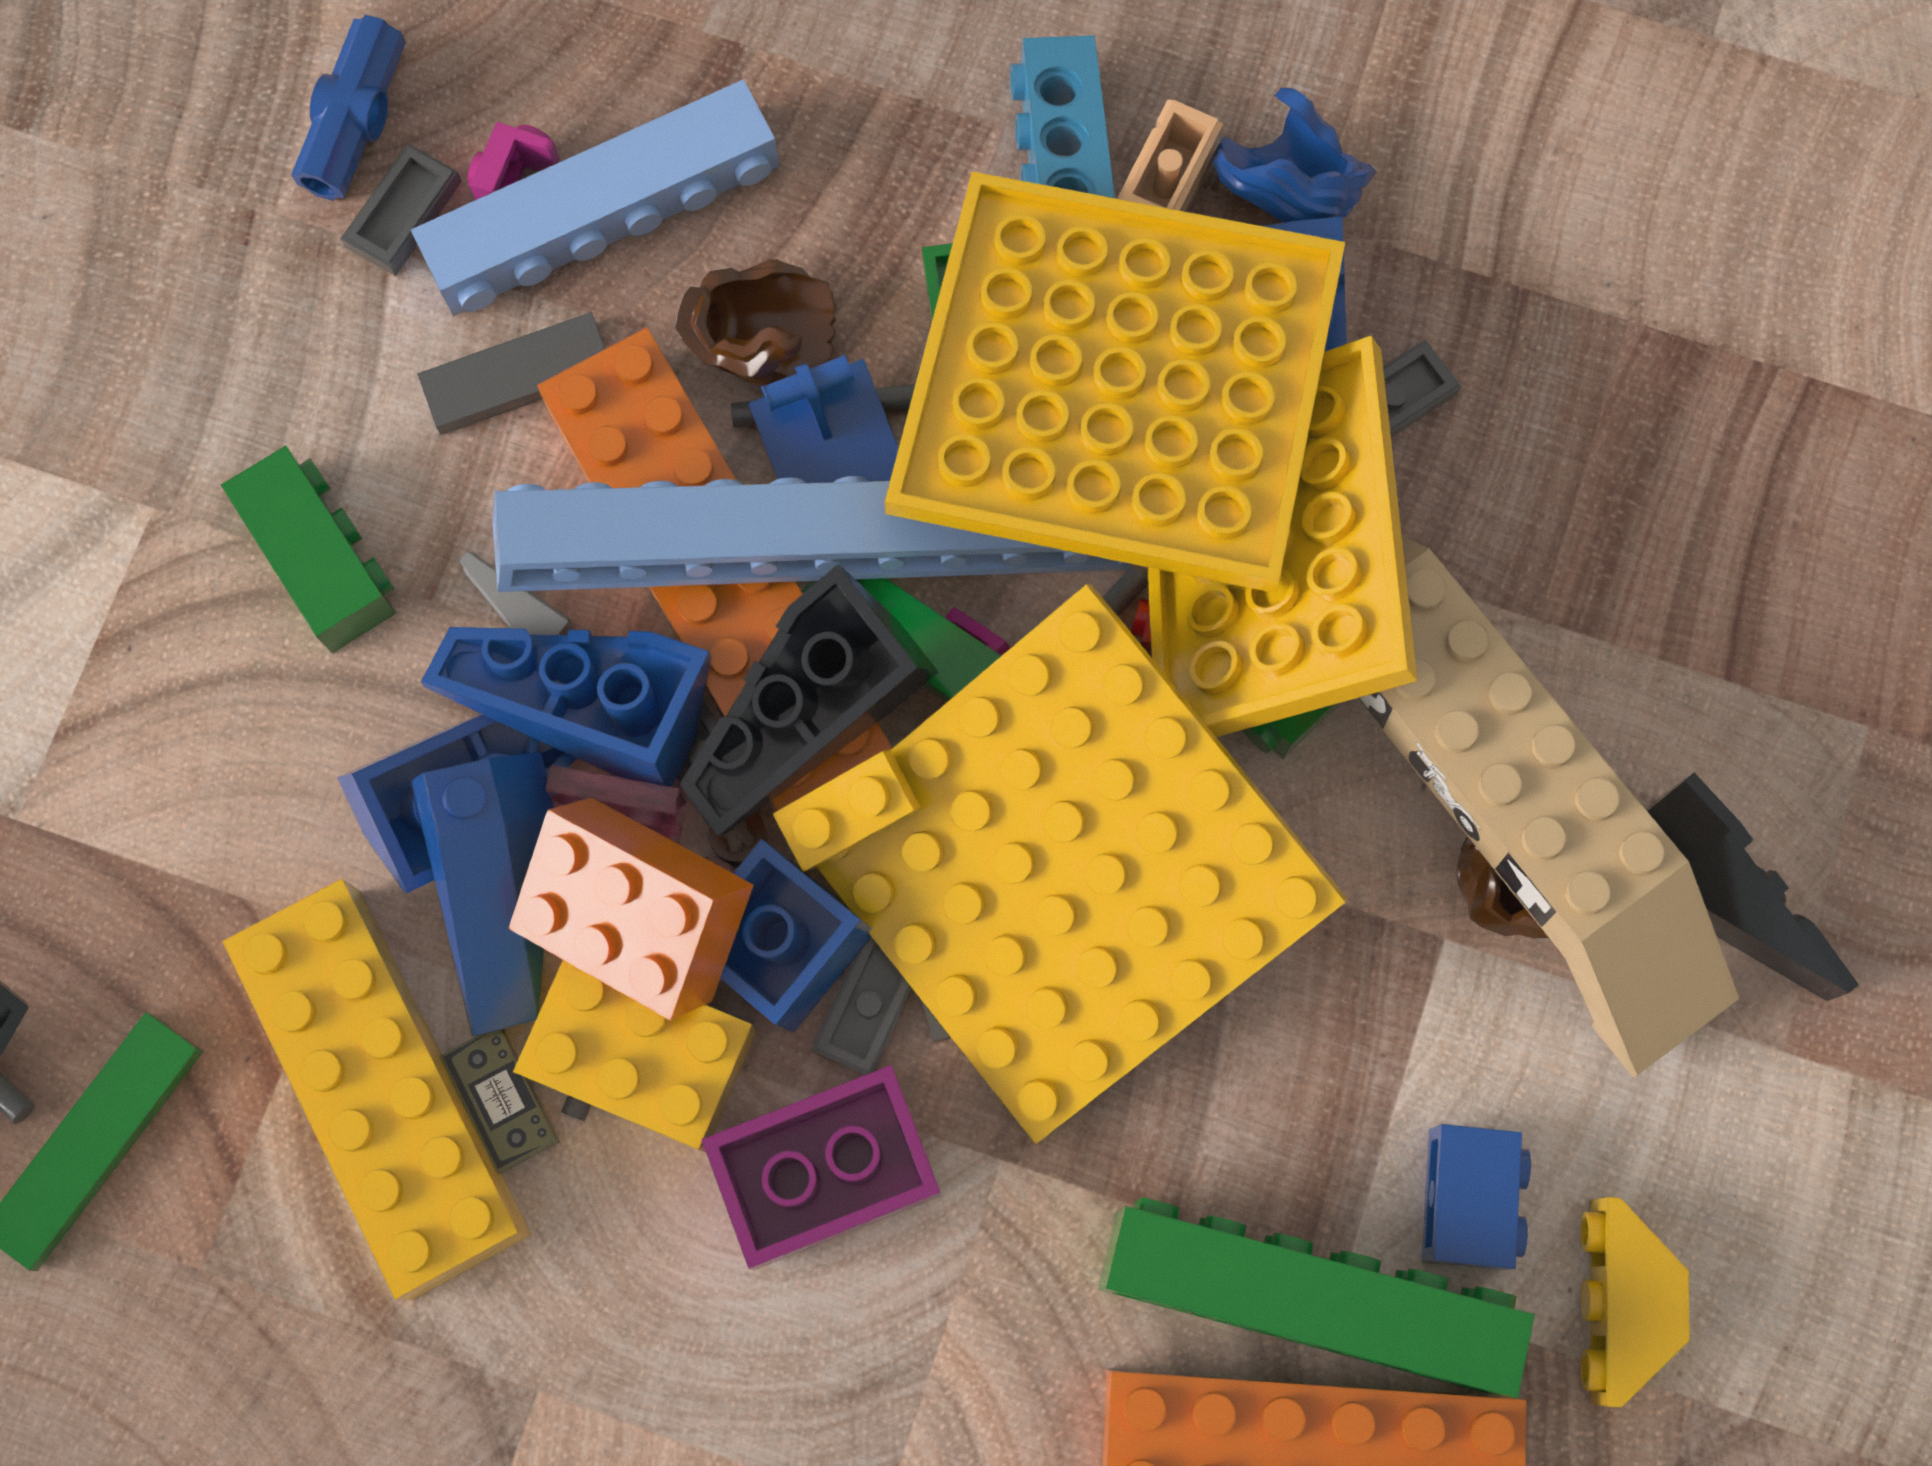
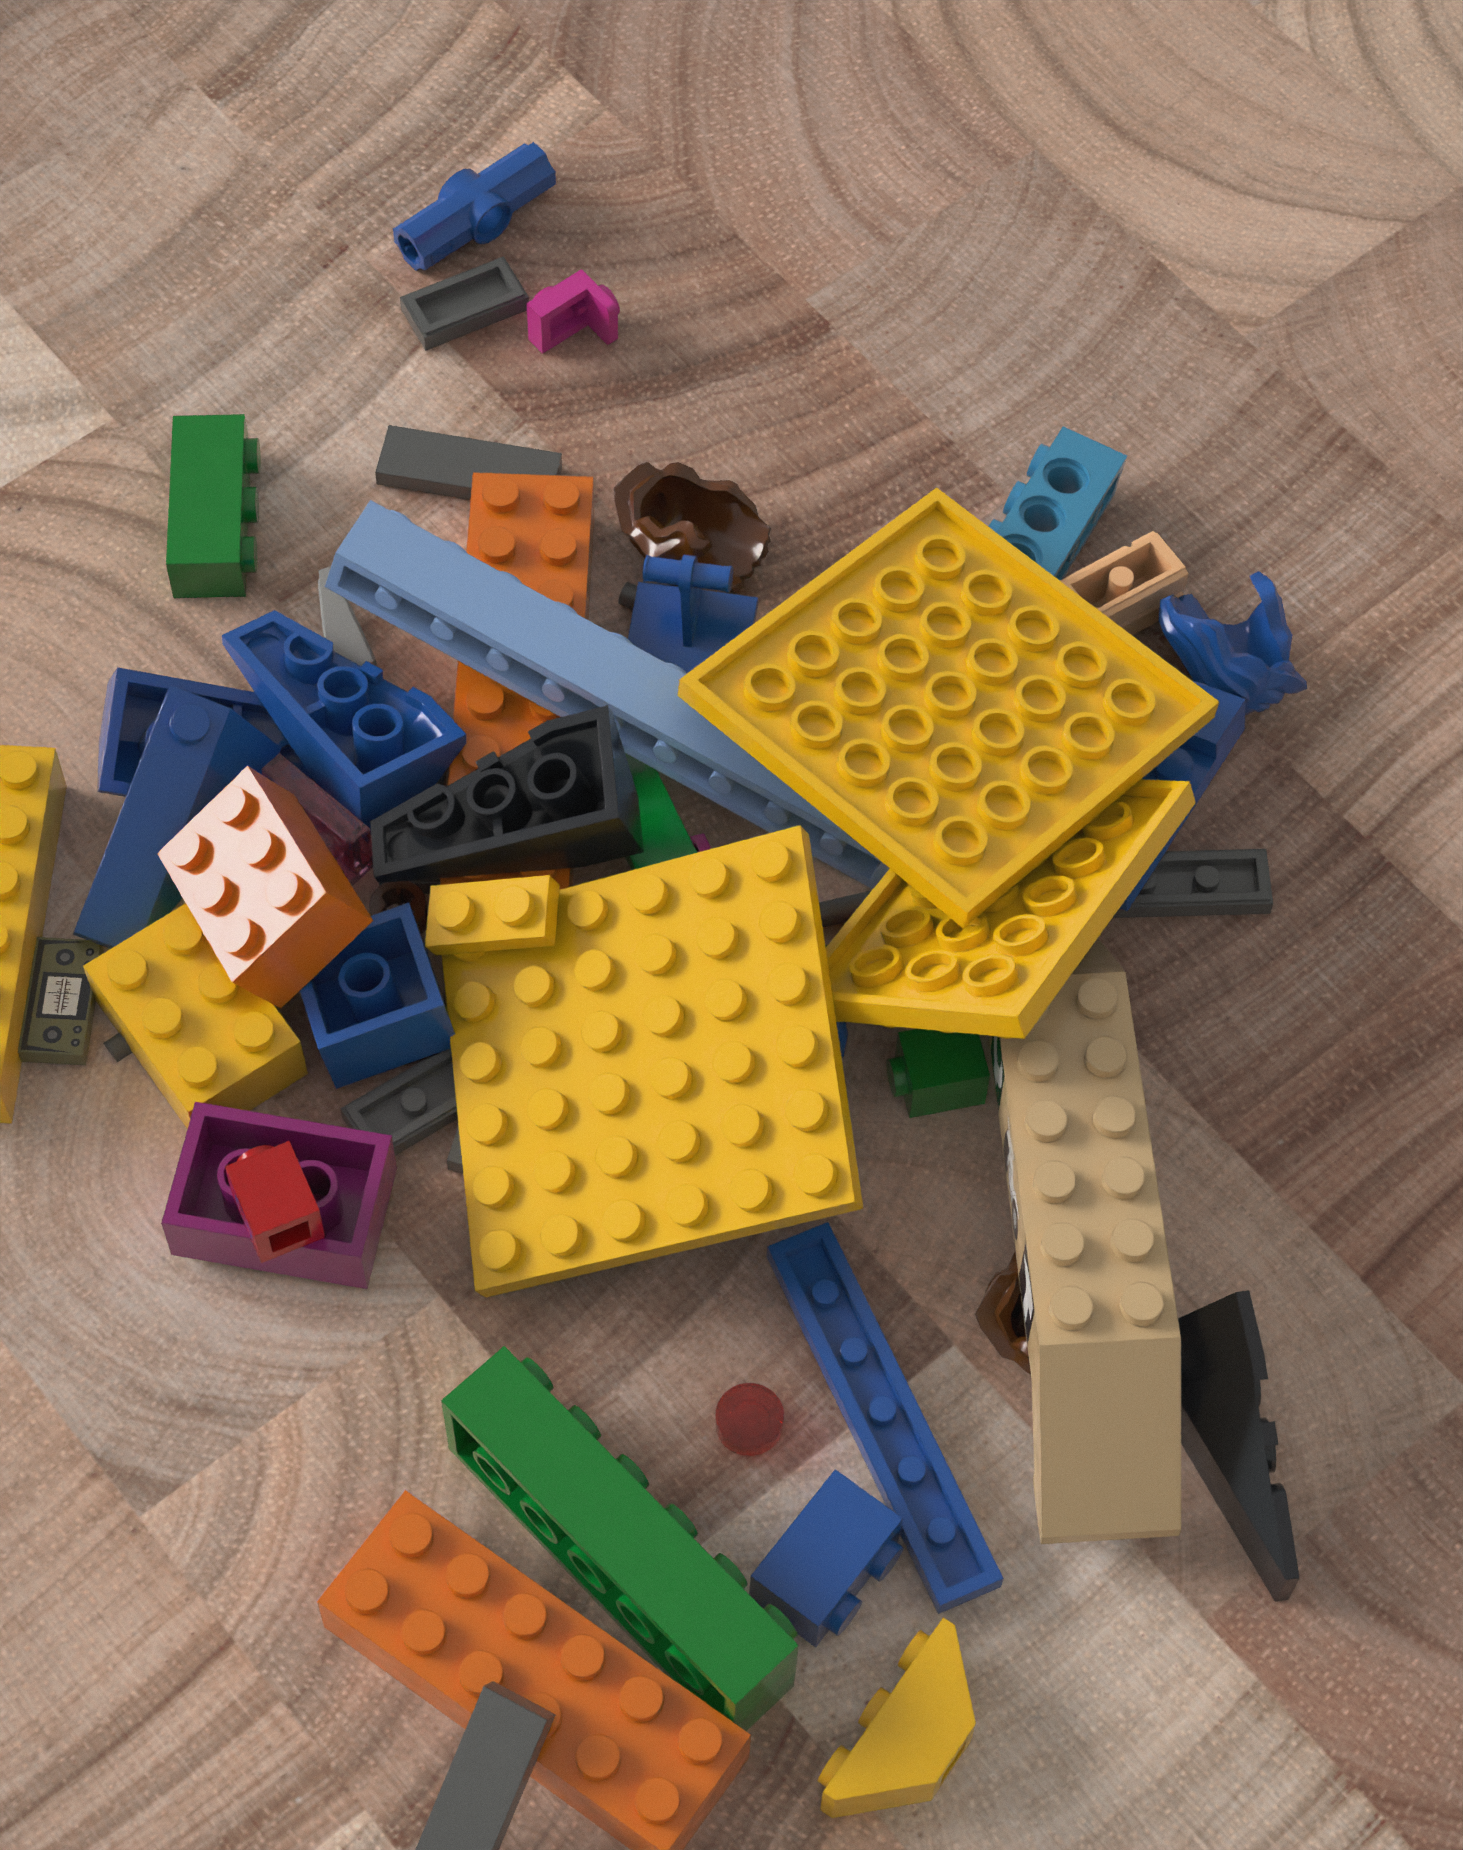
camera: 30 degrees right, 15 degrees down
(598, 198) = (626, 371): light blue brick -> none
(839, 1194) = (274, 1200): none -> red brick
(1328, 1111) = (749, 1419): none -> clear red tile
(1447, 1050) = (884, 1418): none -> blue plate

